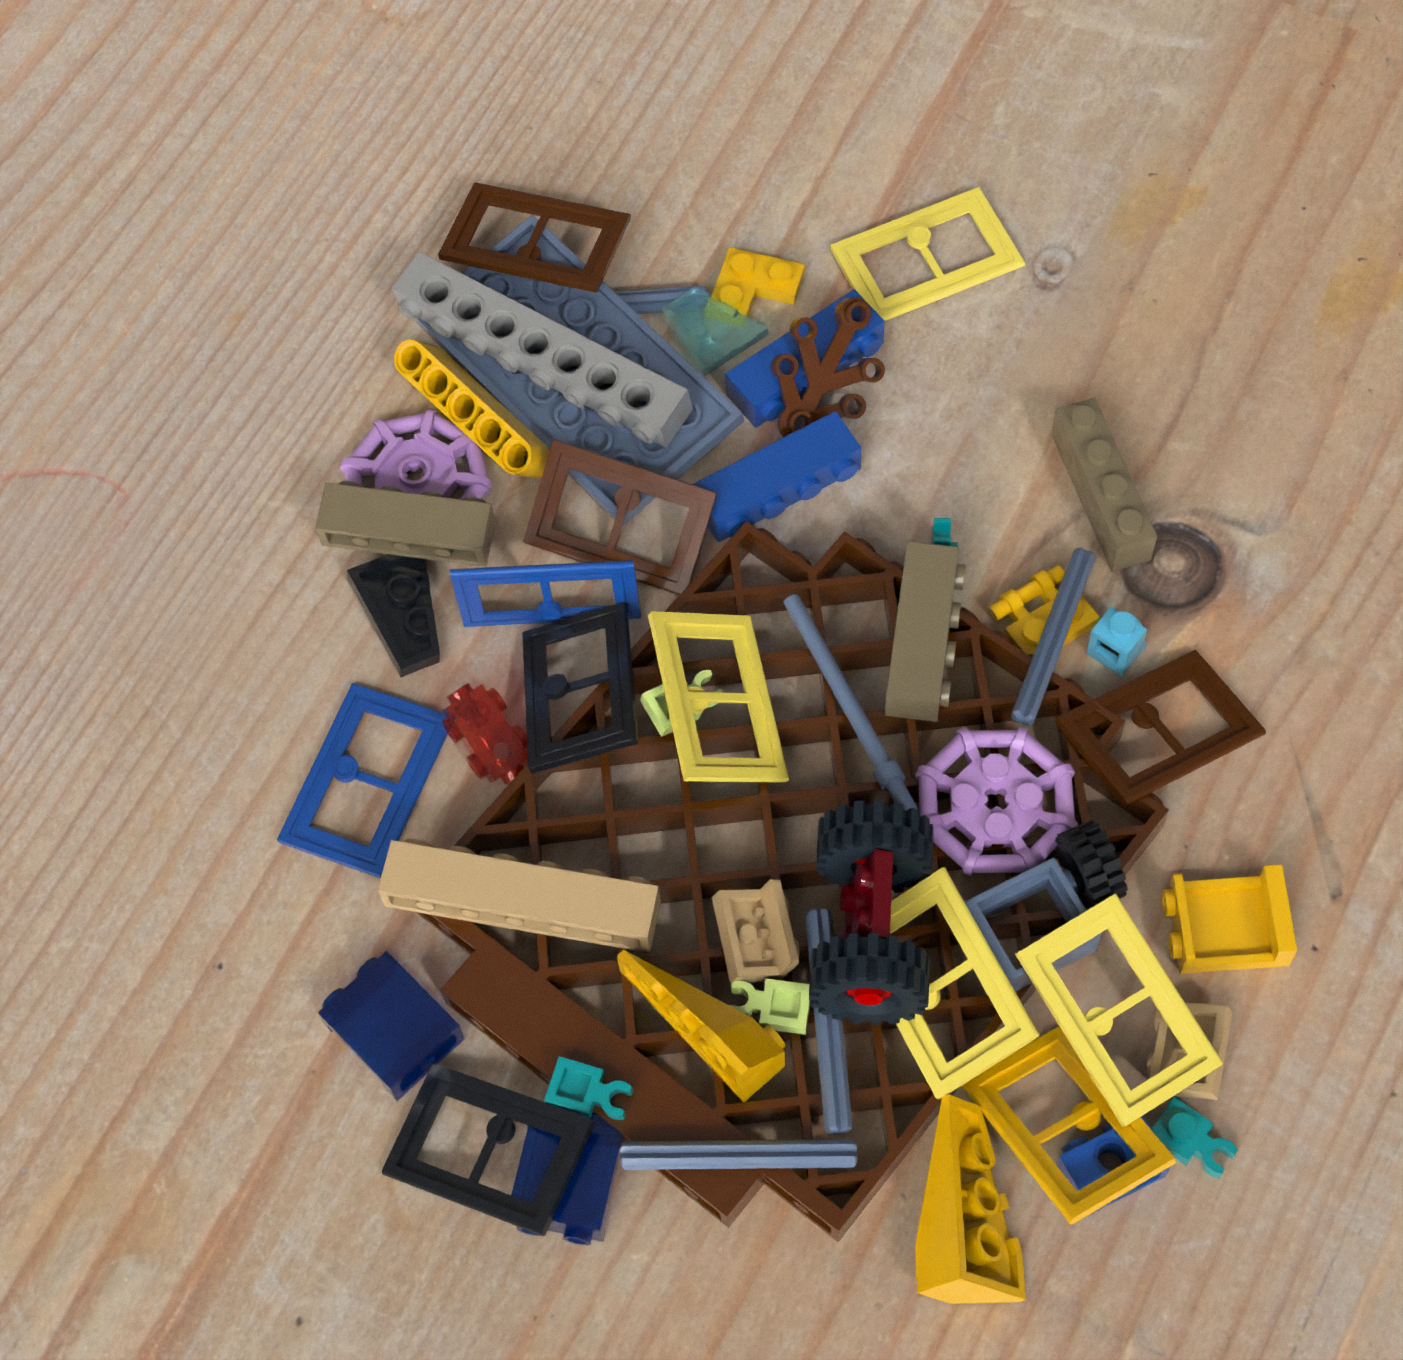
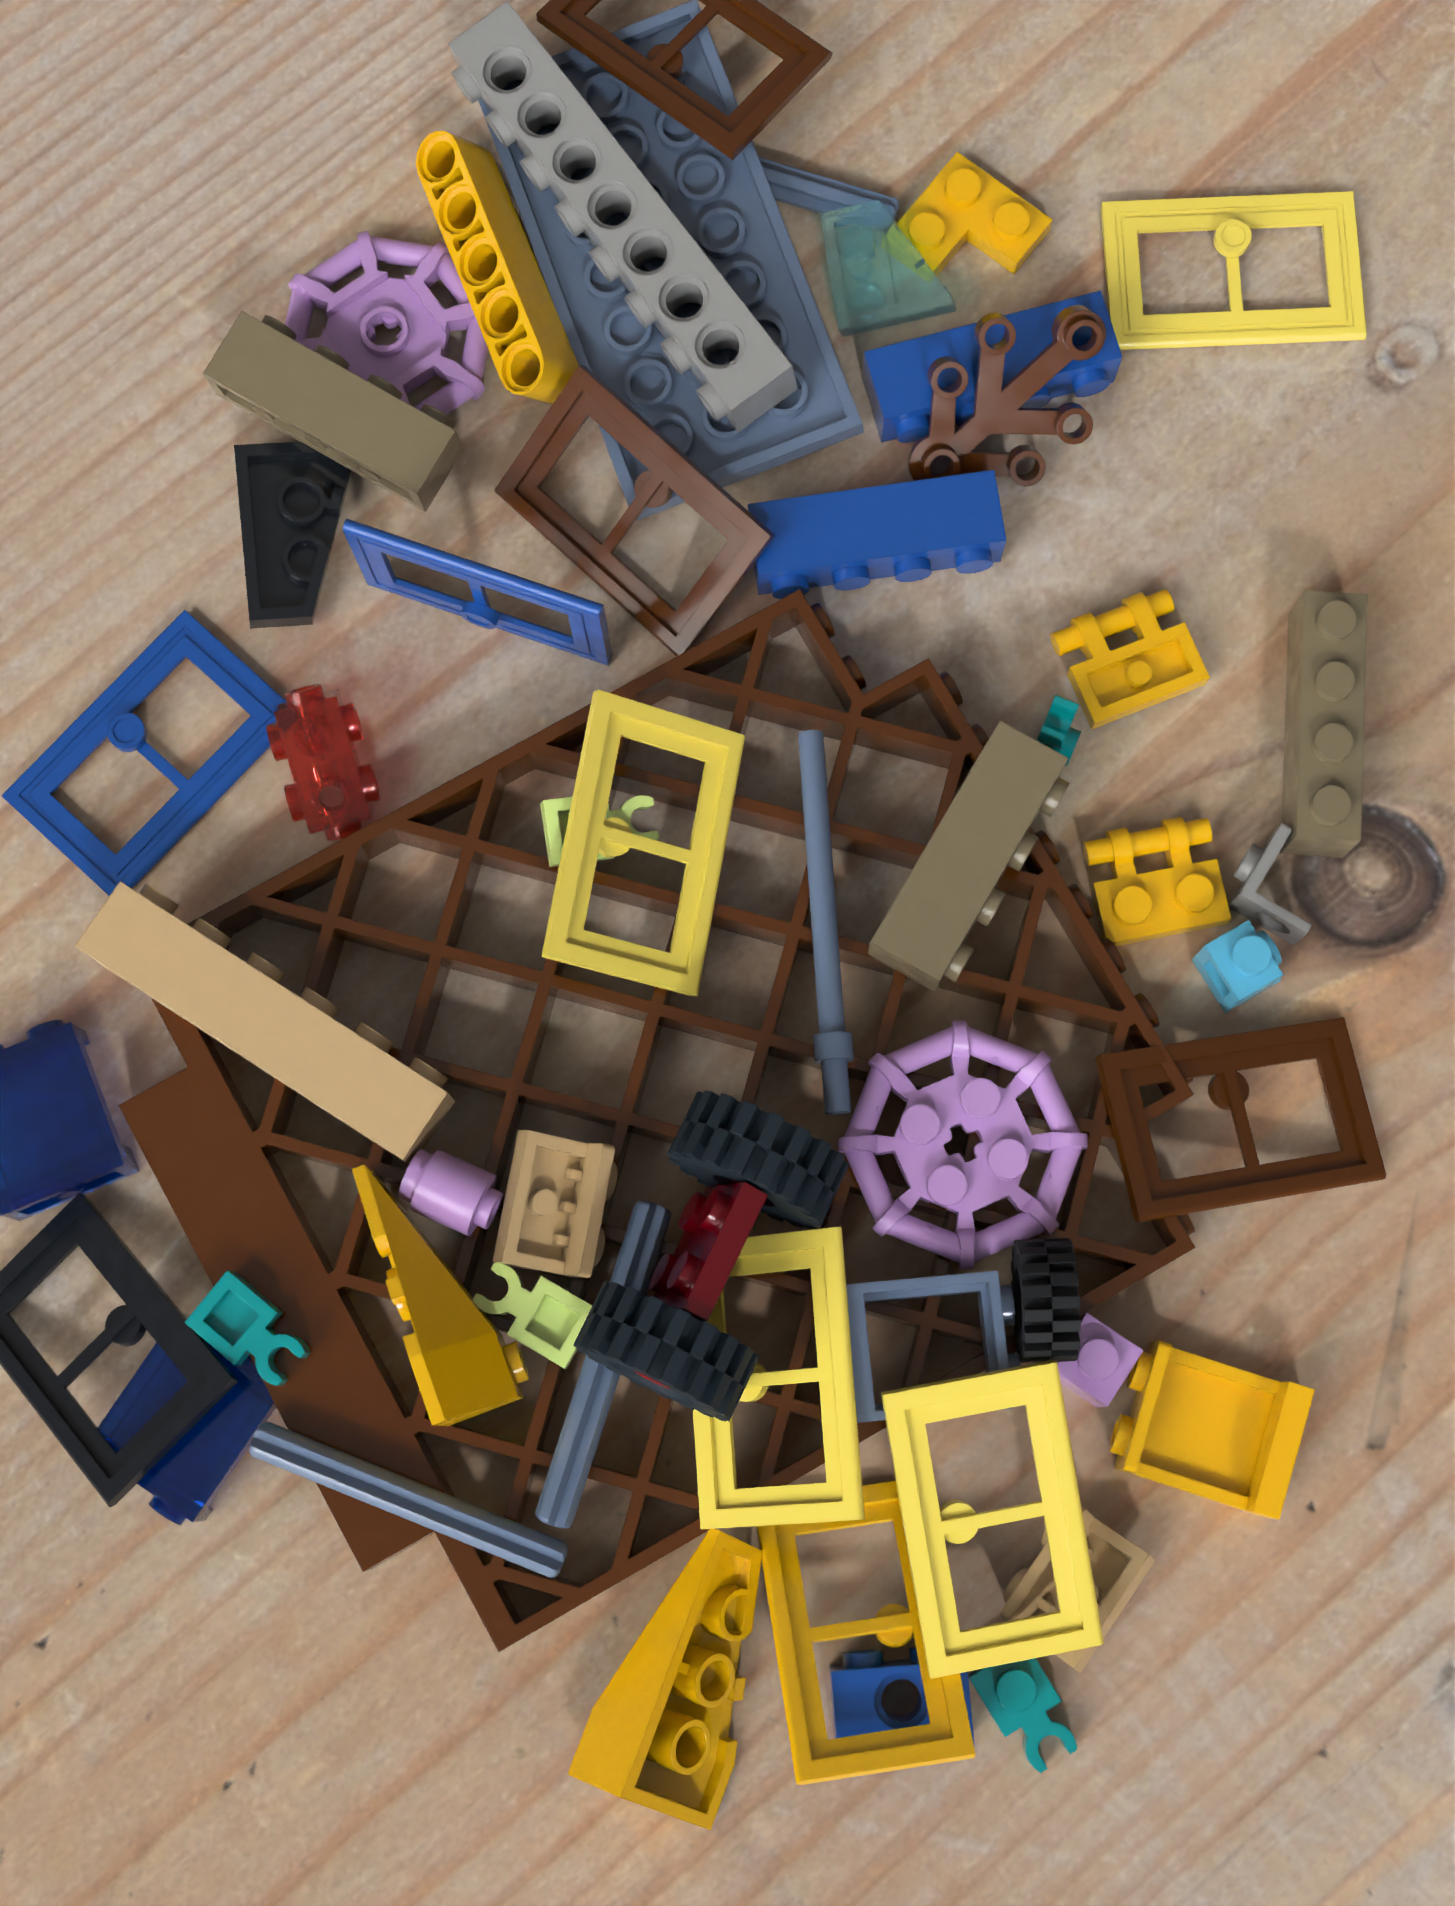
camera: 20 degrees right, 15 degrees up
(541, 688) = (424, 728): black door -> none
(684, 951) = (450, 1191): none -> lavender brick
(975, 499) = (1138, 673): none -> yellow plate
(1053, 637) = (1149, 931): sand blue axle -> none
(1105, 599) = (1256, 907): none -> light grey bracket
(1144, 902) = (1102, 1362): none -> lavender brick

